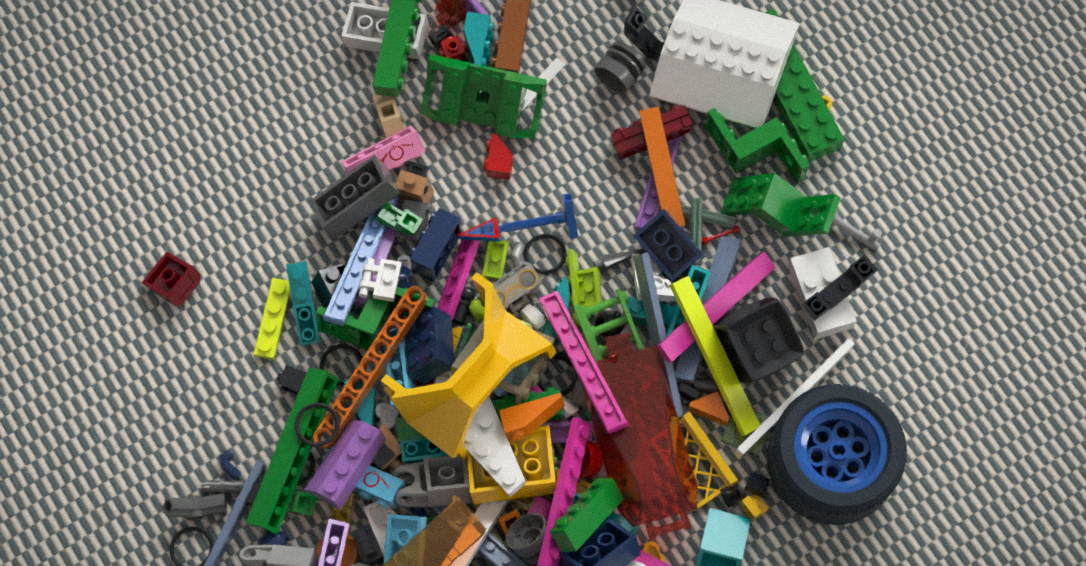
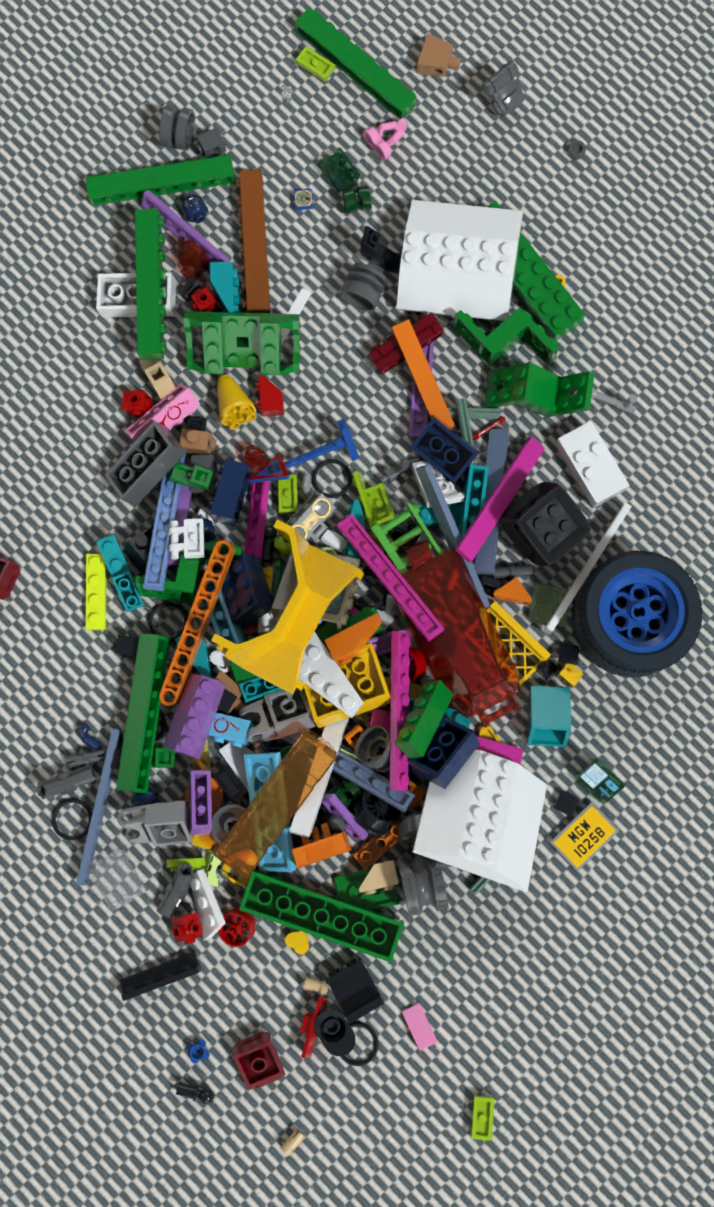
camera: 10 degrees left, 10 degrees up
(316, 444) = (165, 704): black tyre -> none
(360, 136) = (136, 402): none -> red brick
(460, 157) = (233, 403): none -> yellow cone
(470, 214) = (255, 456): none -> clear red cone
(715, 356) = (508, 545): neon yellow tile -> none
(840, 288) = (609, 459): black slope -> none

